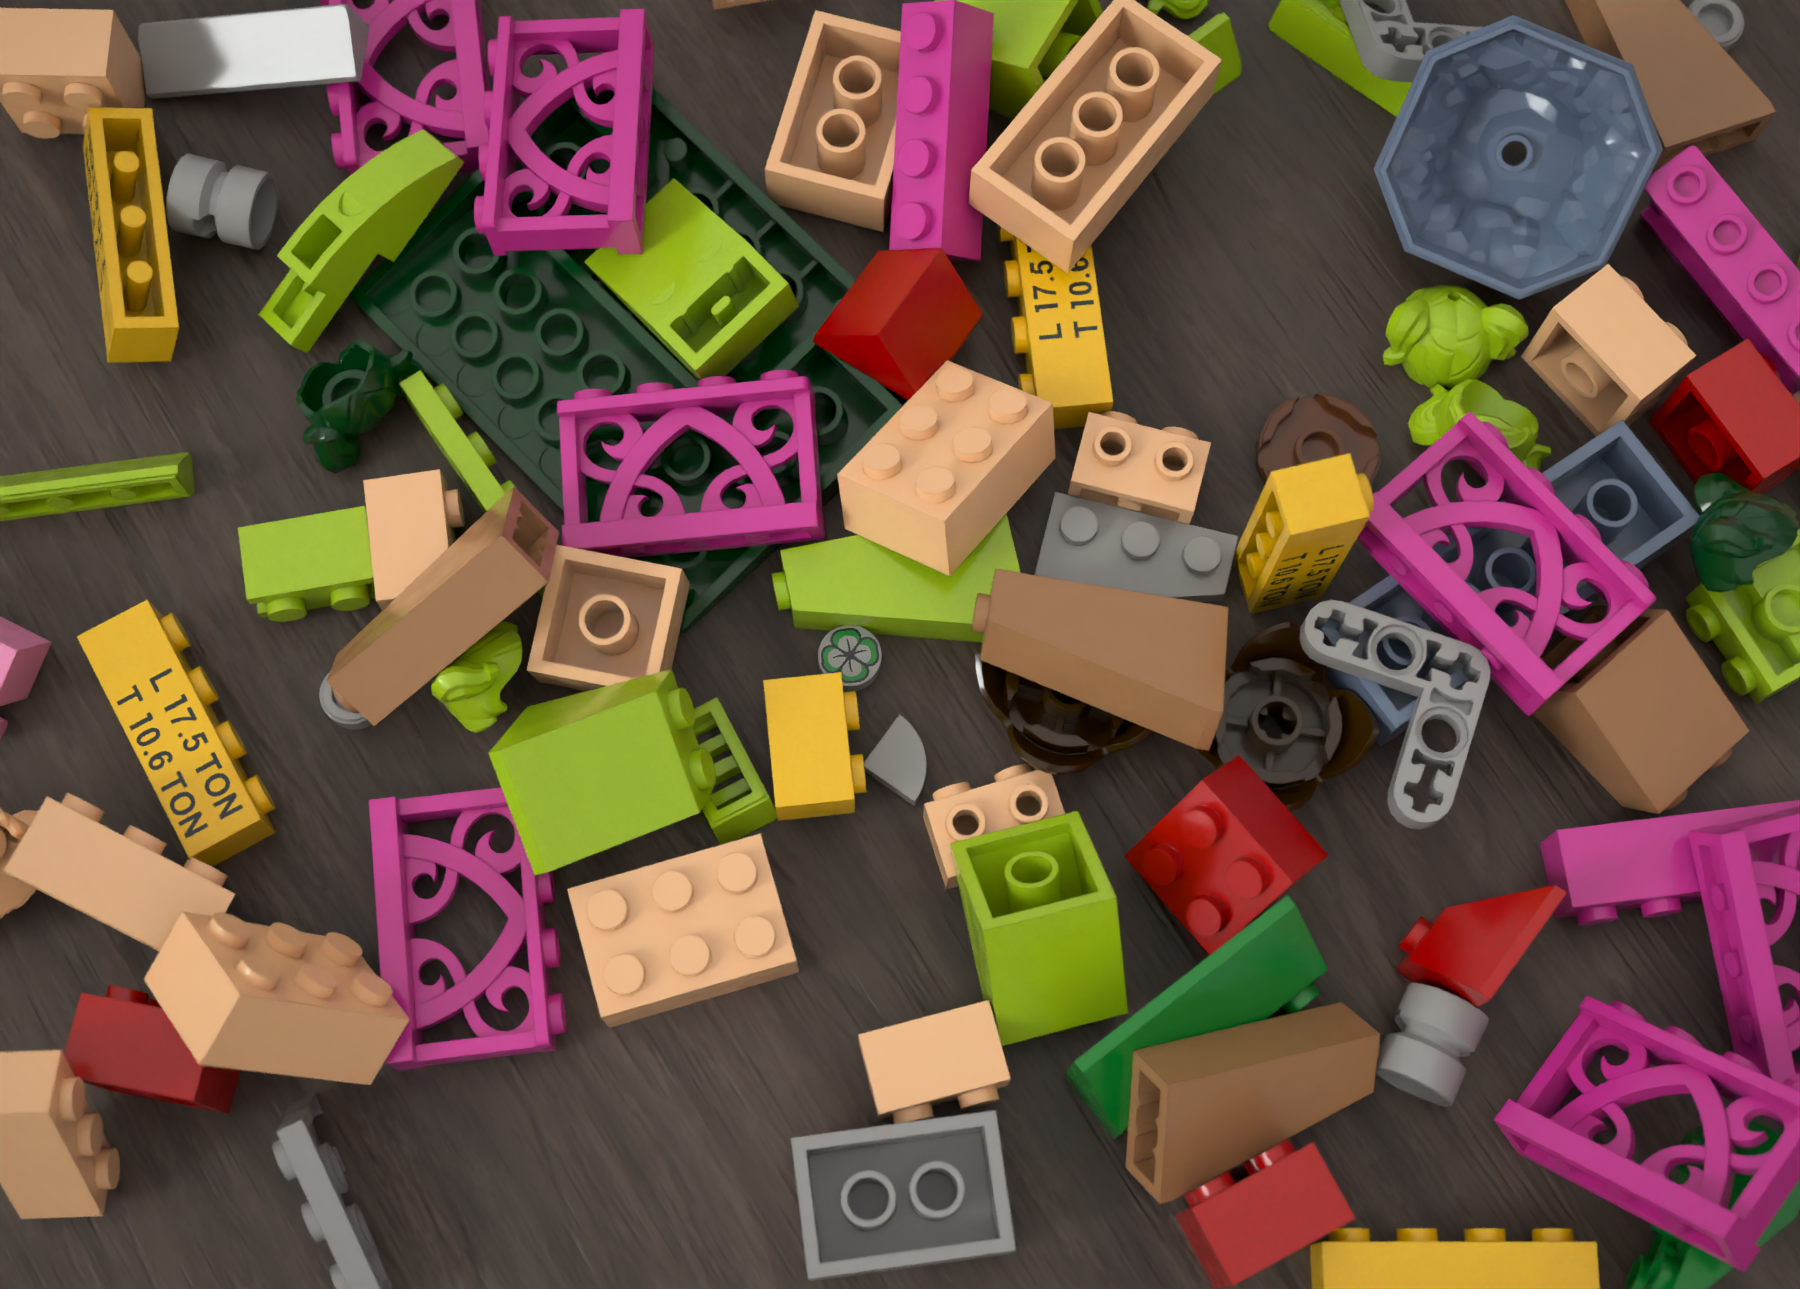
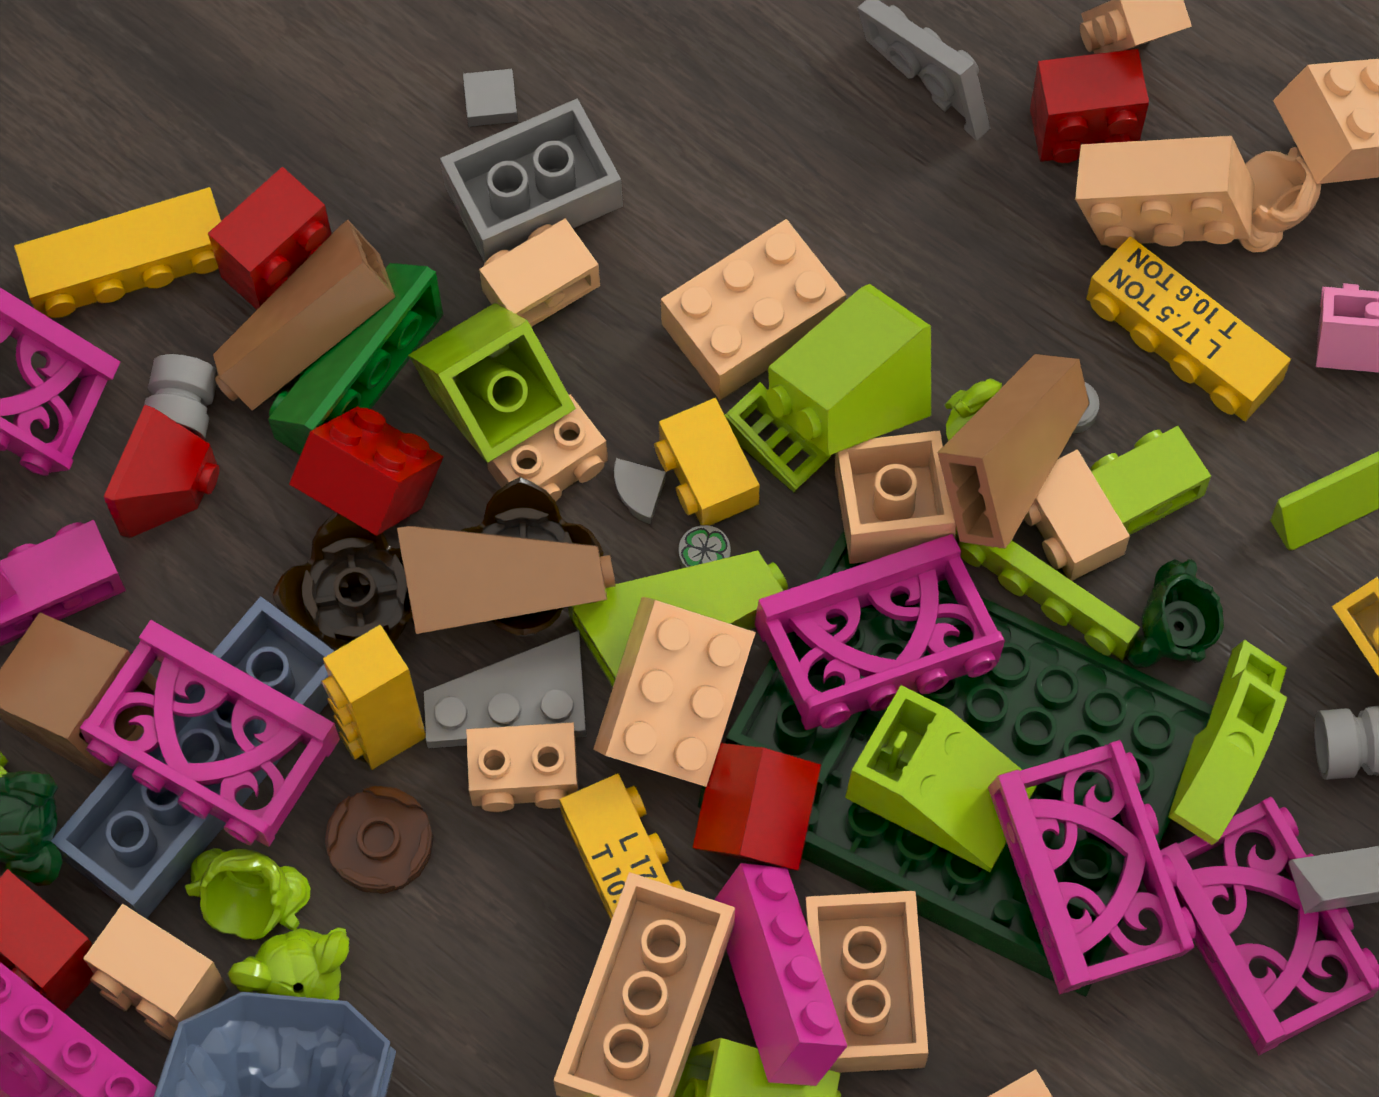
camera: 165 degrees right, 5 degrees down
(275, 999) = (1013, 141): light nougat brick -> none
(396, 866) = (932, 203): dark pink fence -> none
(1434, 696) = (237, 617): light grey beam -> none

